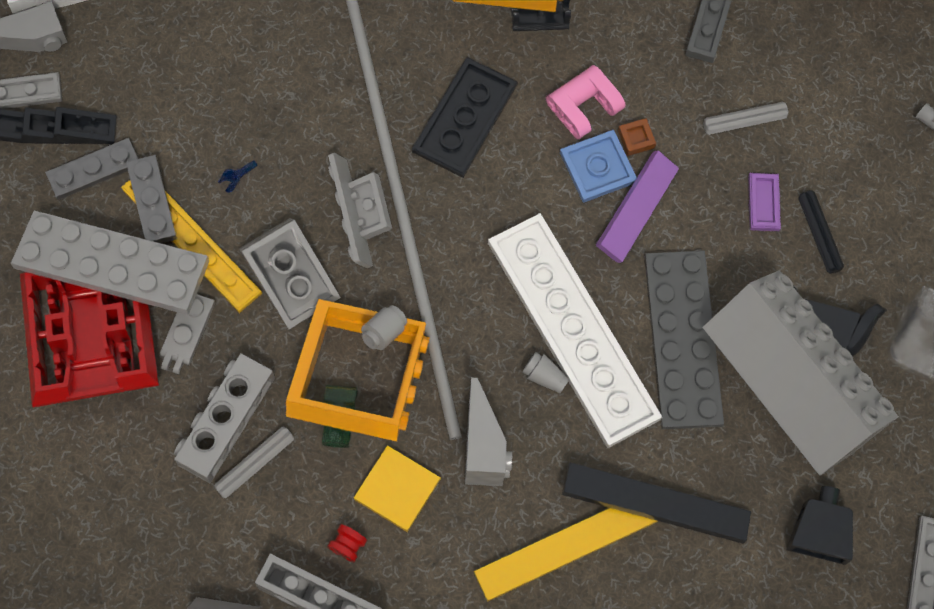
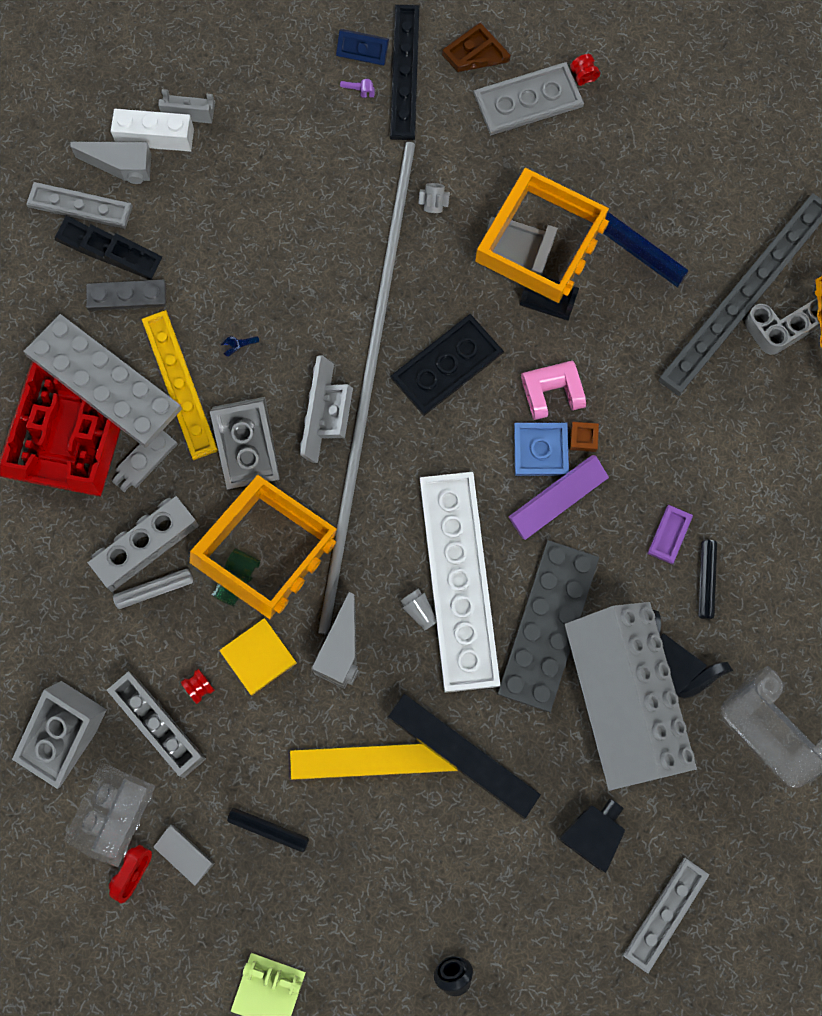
camera: 25 degrees right, 5 degrees up
(151, 199) = (159, 340): flat silver plate -> none
(383, 327) = (297, 520): light grey brick -> none
(745, 118) = (686, 455): light grey axle -> none

